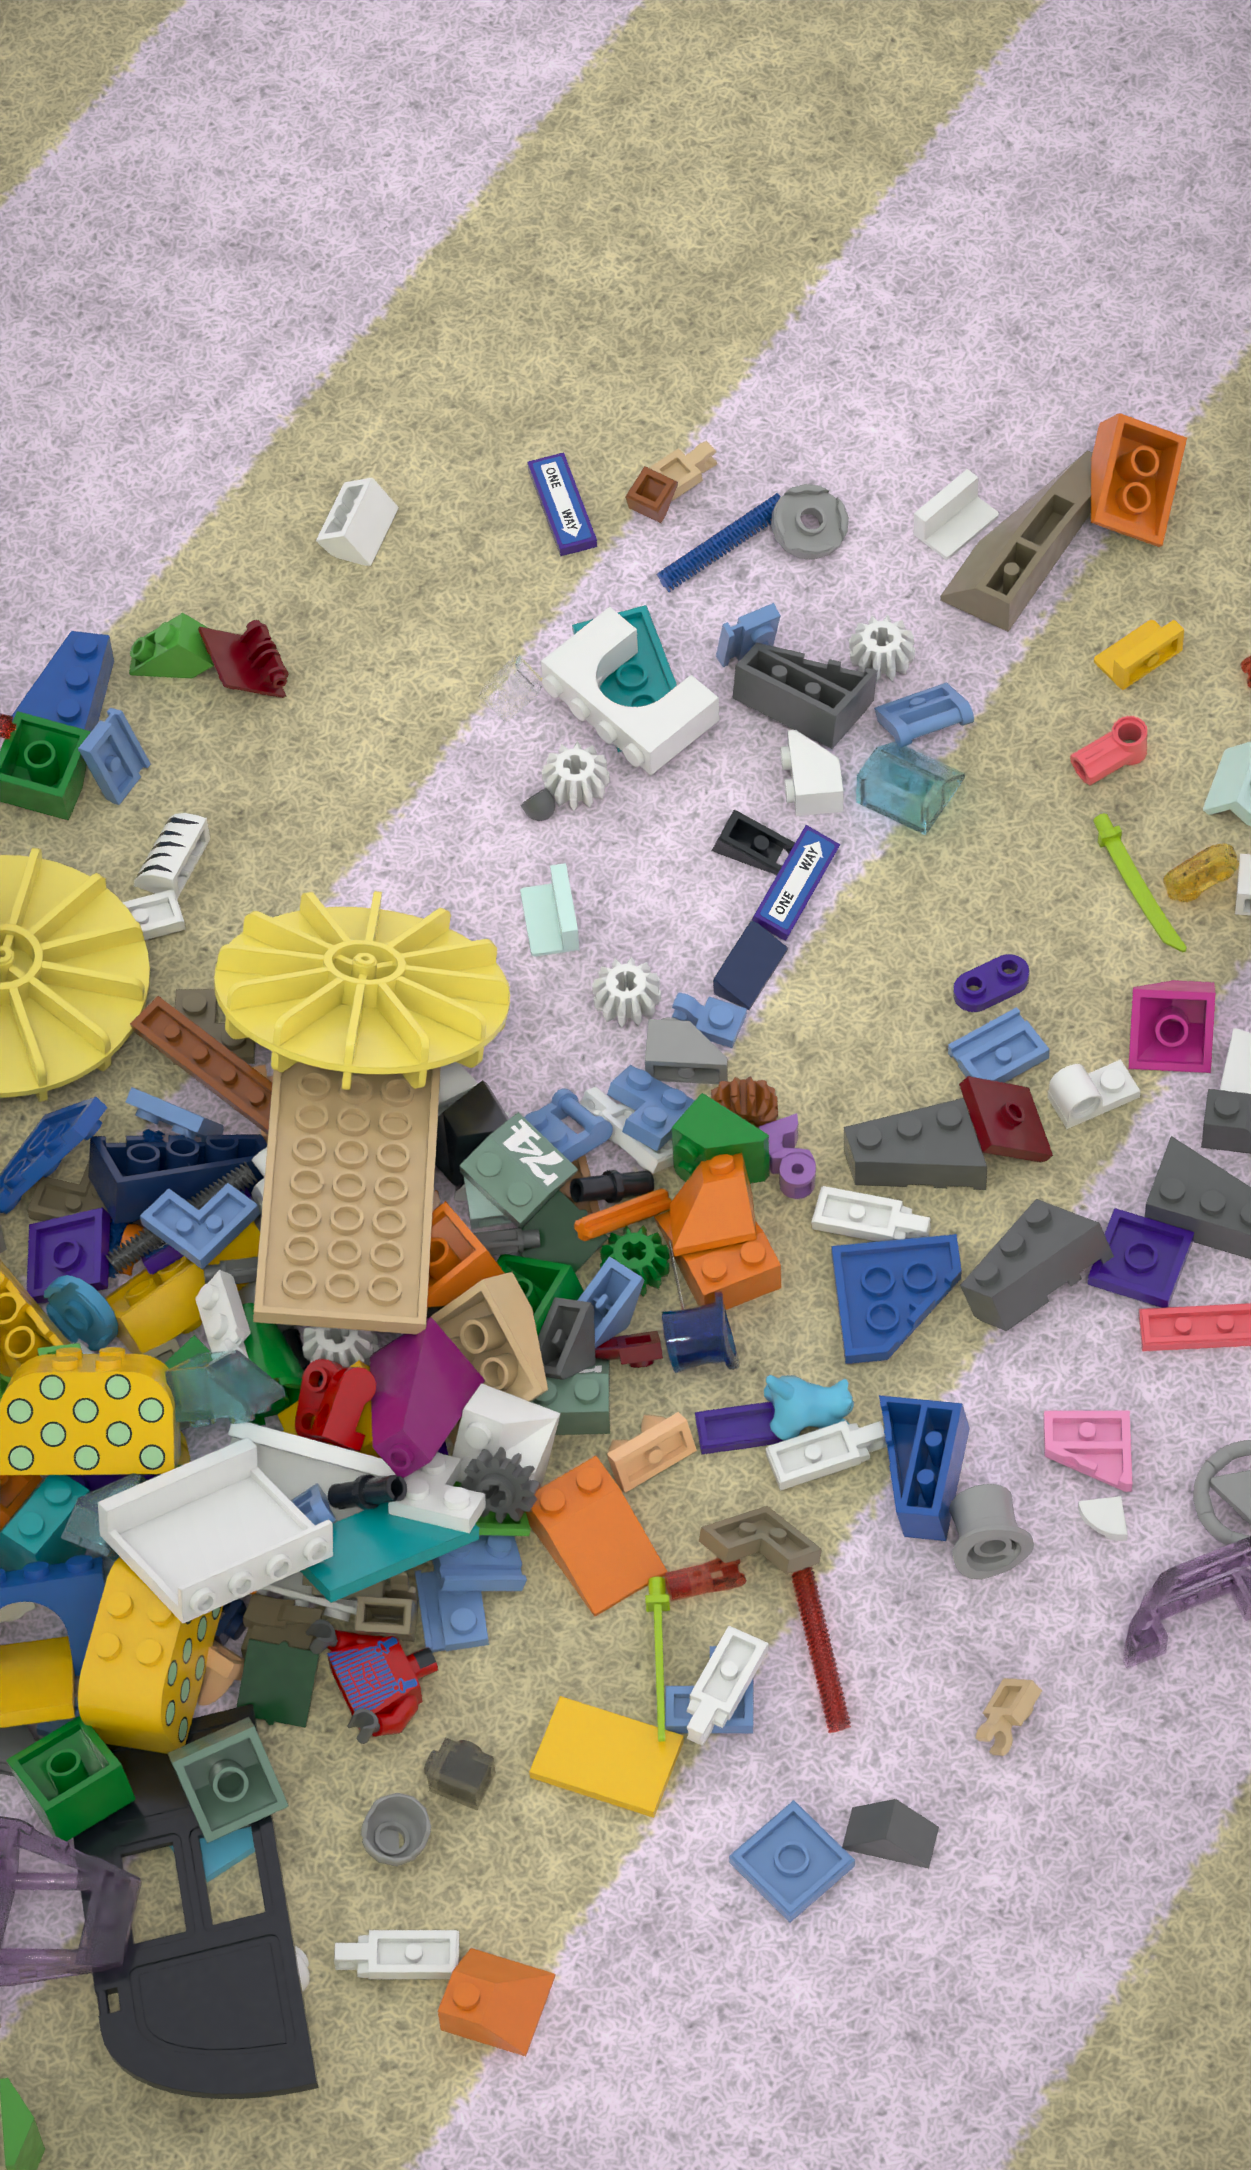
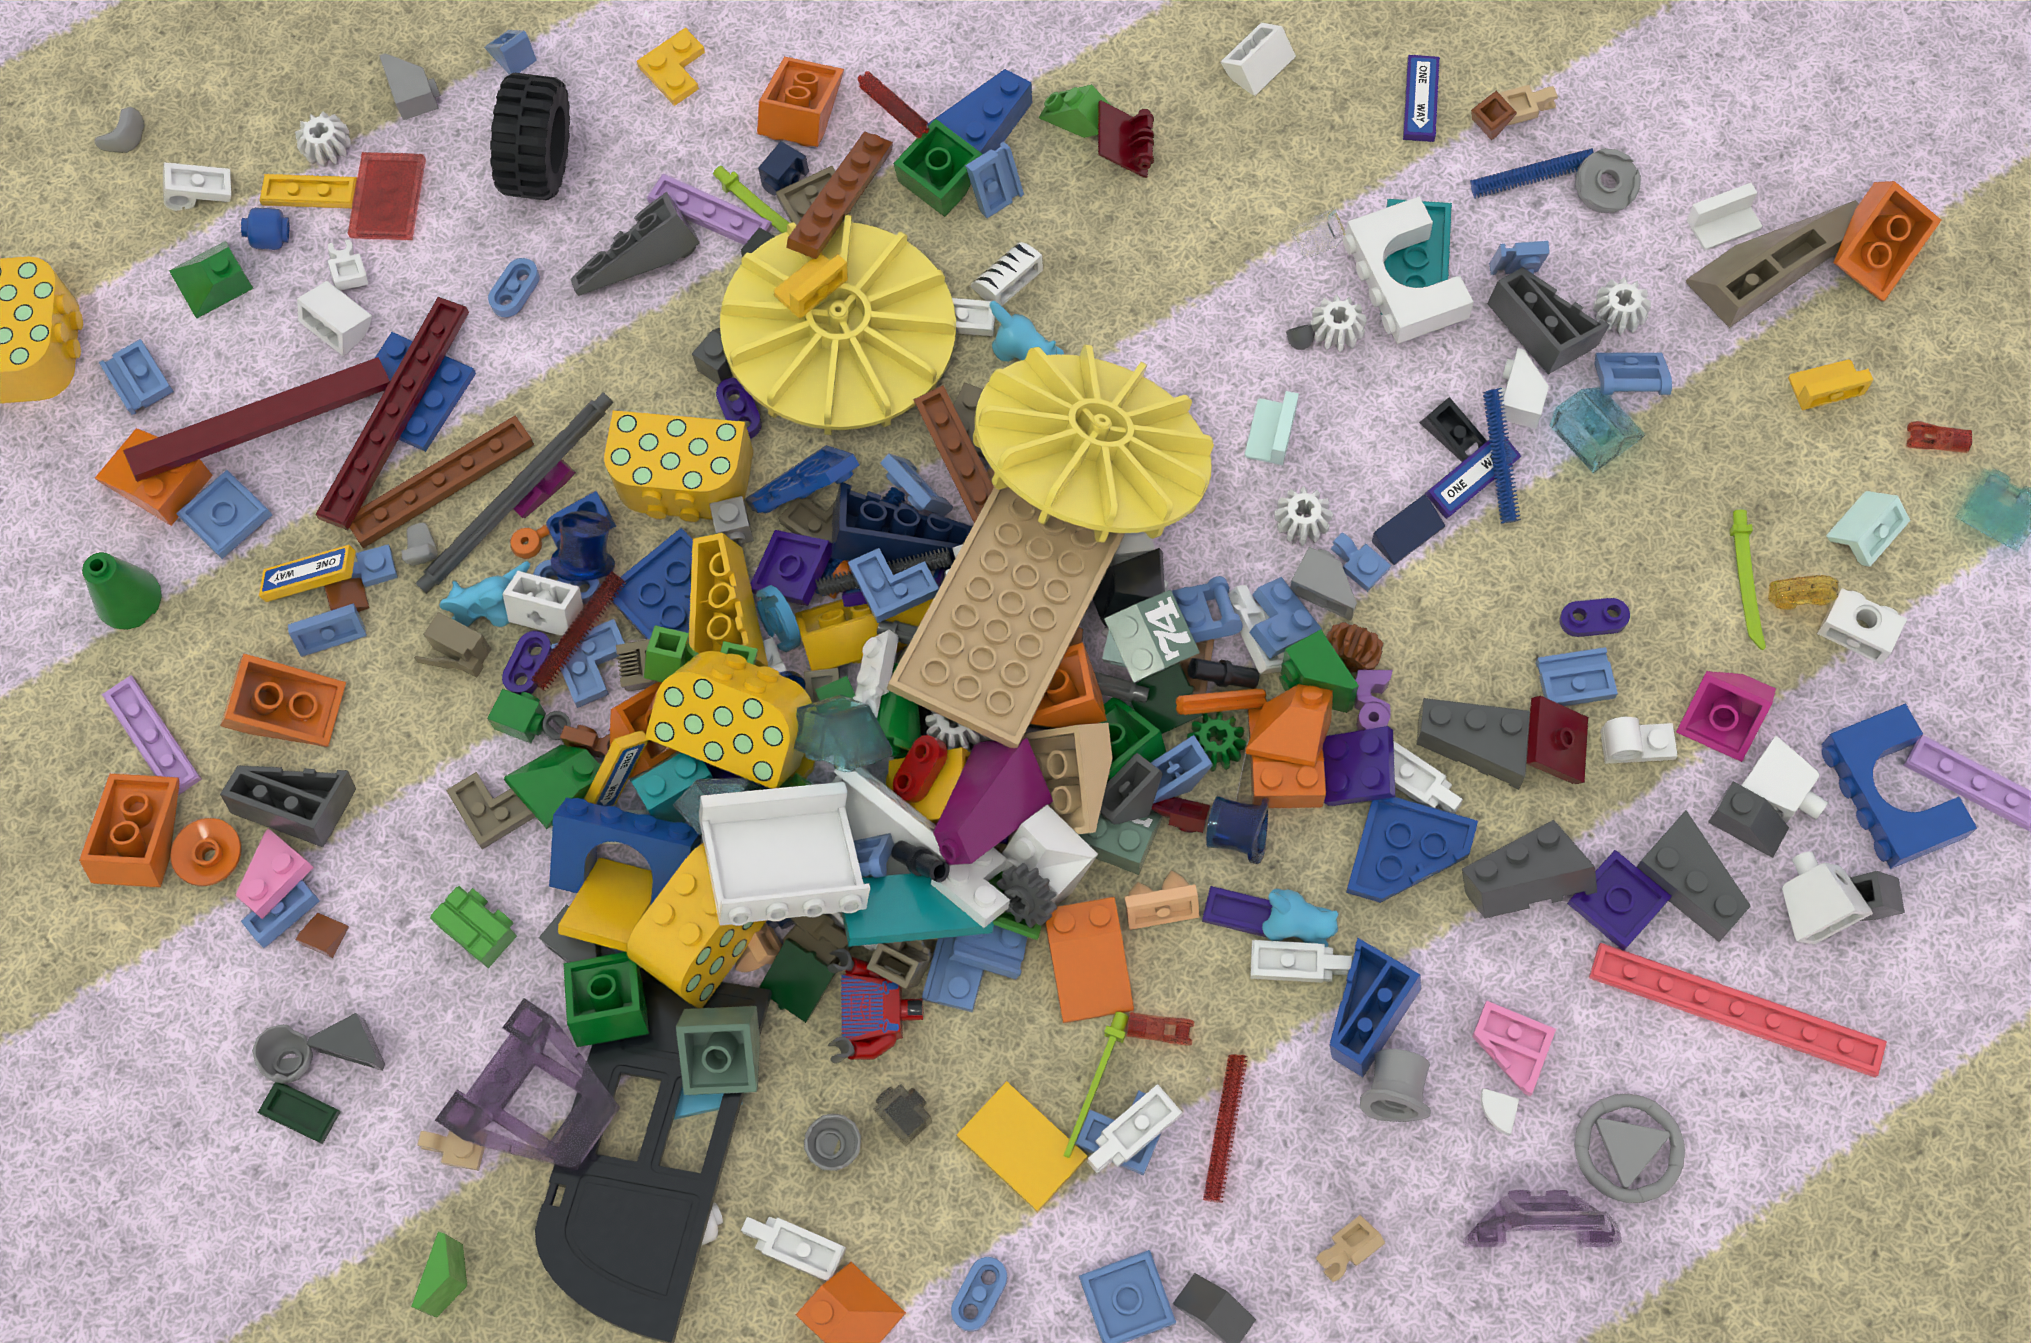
camera: 25 degrees right, 10 degrees up
(214, 917) = (1017, 336): none -> medium azure animal
(342, 1407) = (929, 783): red leg -> none
(628, 1922) = (979, 1294): none -> medium blue plate
(762, 1533) = (1220, 1013): dark tan plate -> none
(804, 1226) = (1359, 766): none -> dark purple plate
(816, 850) = (1500, 456): none -> blue axle
(1110, 751) = (1770, 461): coral piece -> none

